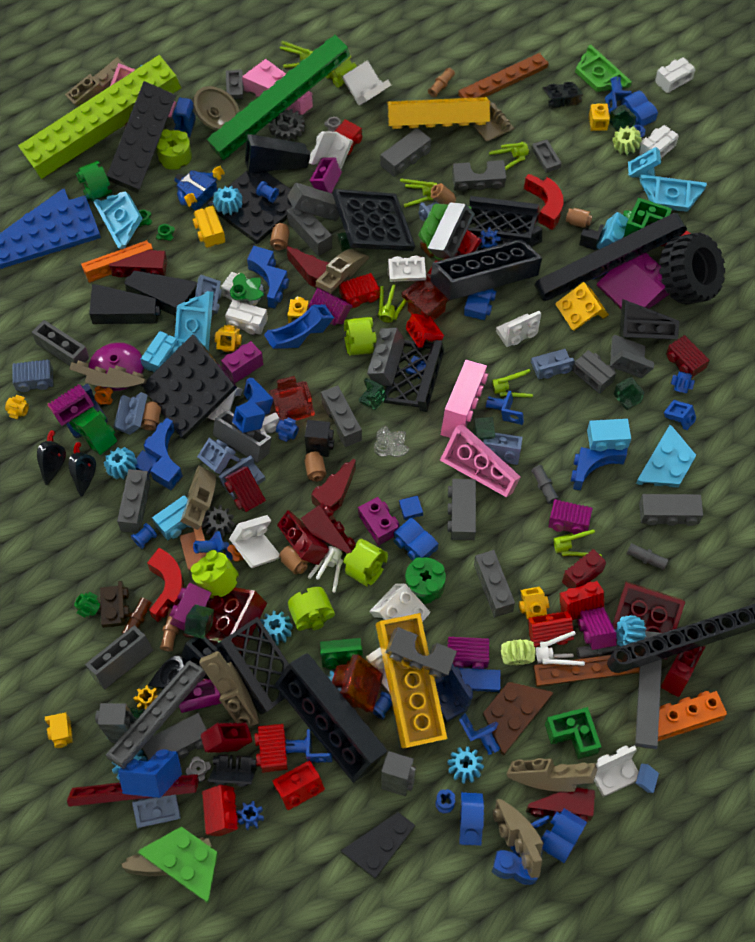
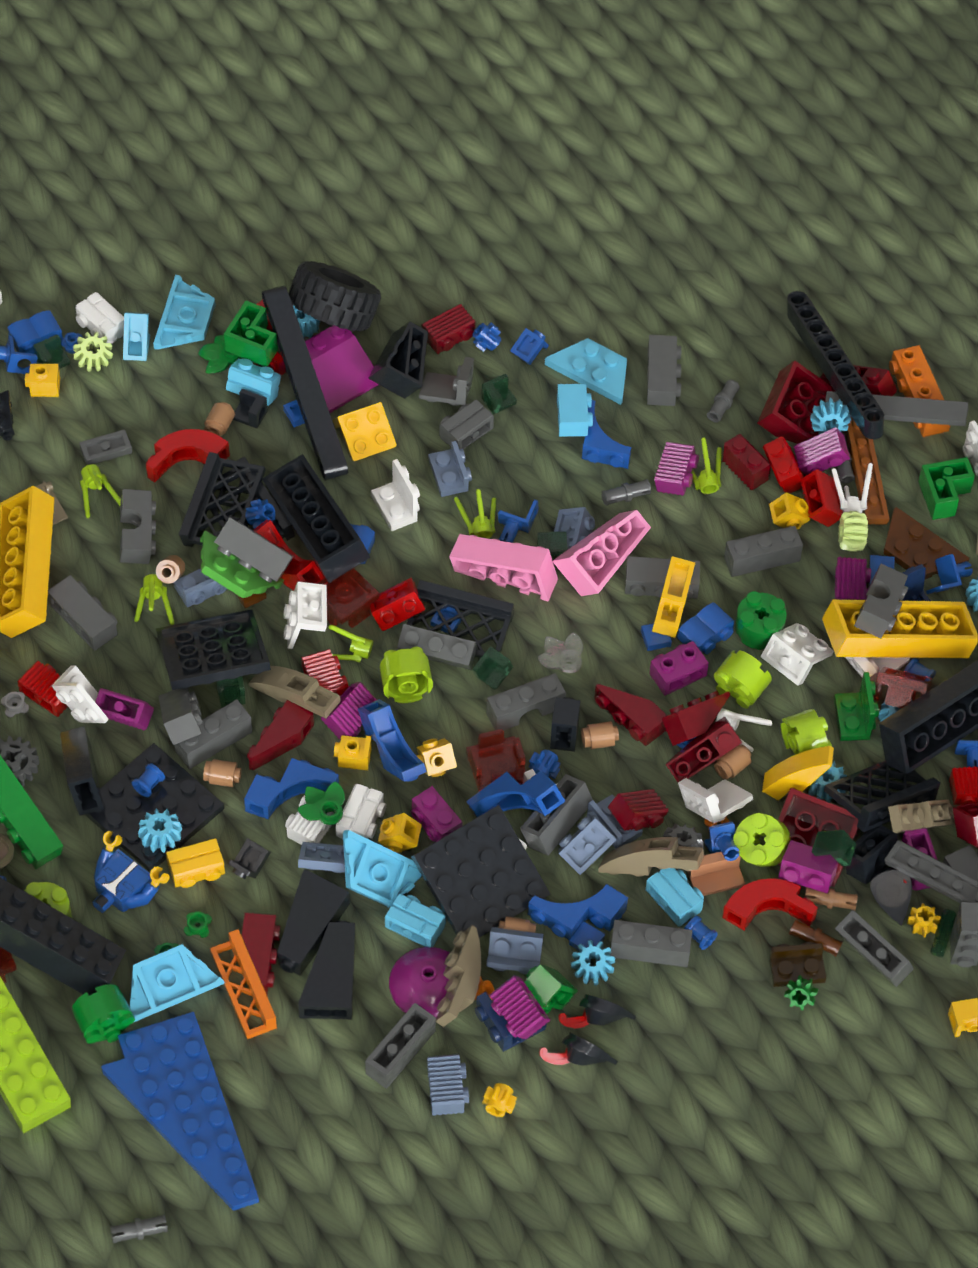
camera: 90 degrees left, 5 degrees down
(210, 256) = (249, 859): none -> black bracket
(273, 597) = (797, 771): none -> yellow slope
(292, 359) = (436, 756): none -> yellow brick
(438, 511) = (673, 597): none -> yellow slope

